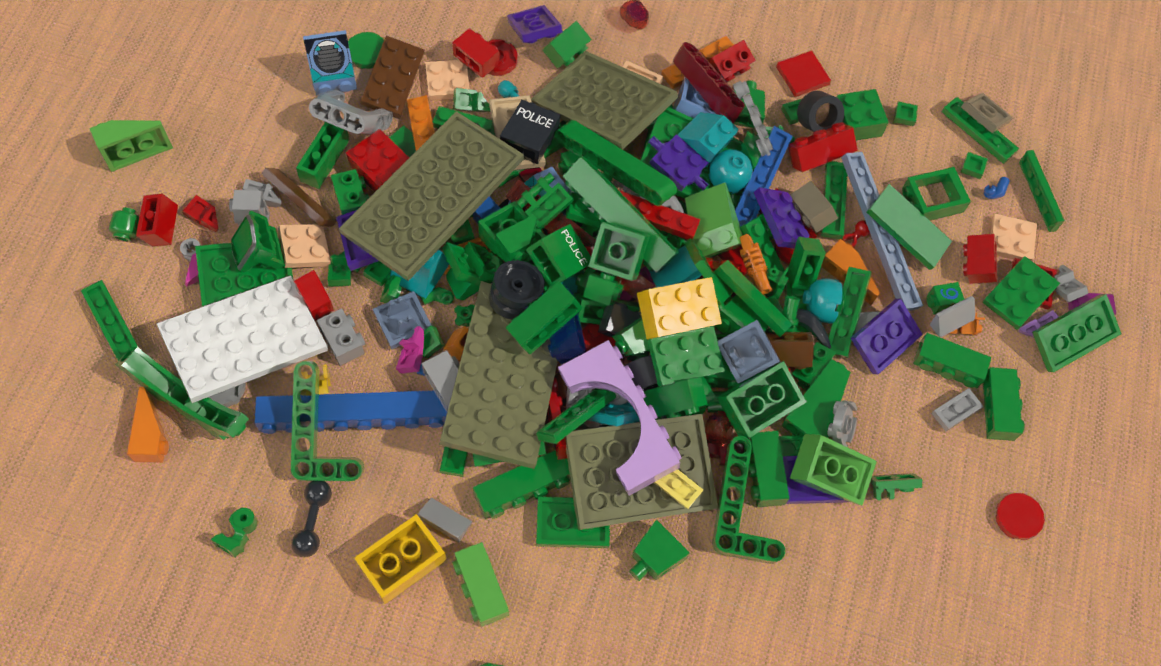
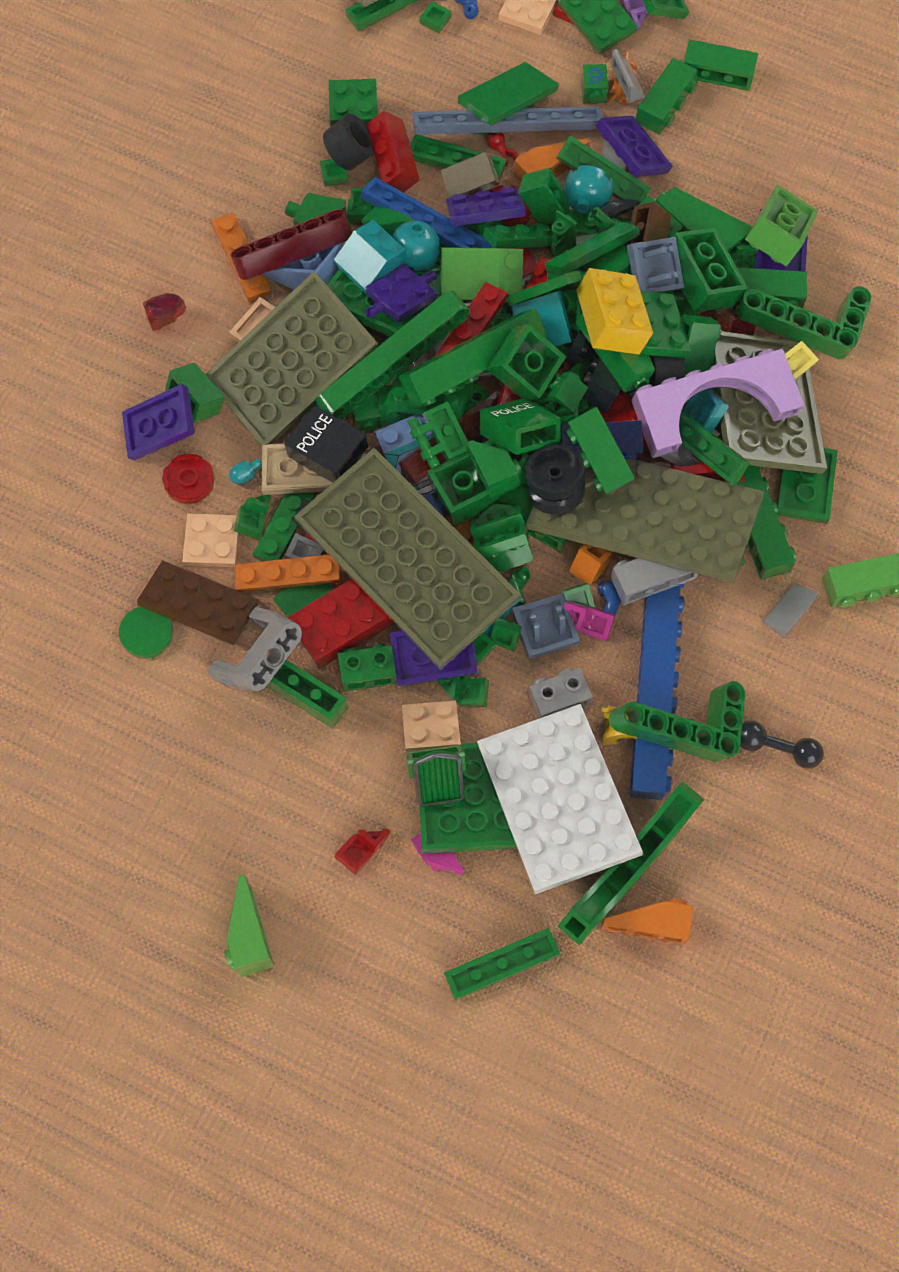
camera: 75 degrees left, 5 degrees up
(124, 224) = (366, 942): green head -> none
(157, 220) = (370, 899): red brick -> none
(186, 244) = (416, 871): light grey bush -> none
(243, 523) = (776, 821): green leg -> none
(246, 201) = (377, 782): light grey brick -> none
(269, 195) = (343, 778): light grey slope -> none
(299, 197) = (359, 728): reddish brown tile -> none
(314, 295) = (507, 714): red slope -> none
(330, 62) = (179, 667): slope -> none
(400, 558) = (837, 653): yellow brick -> none
(453, 462) = (713, 591): green tile -> none
(461, 320) = (547, 565): green plate -> none
(476, 52) = (190, 494): red brick -> none
(657, 553) = (848, 407): green torso -> none
(733, 60) = (253, 217): red brick -> none
(755, 263) = (545, 242): orange hinge -> none
(764, 145) = (350, 200): light grey plant -> none
(803, 73) = (279, 153): red tile -> none
(844, 423) = (730, 205): light grey plate -> none
(904, 482) = (793, 175): green plate -> none
(905, 113) = (356, 64): green plate -> none
(954, 189) = (464, 43): green window -> none
(957, 409) = (720, 106): light grey plate -> none
(981, 258) = (555, 38): red brick -> none
(1019, 516) = (835, 83): red tile -> none

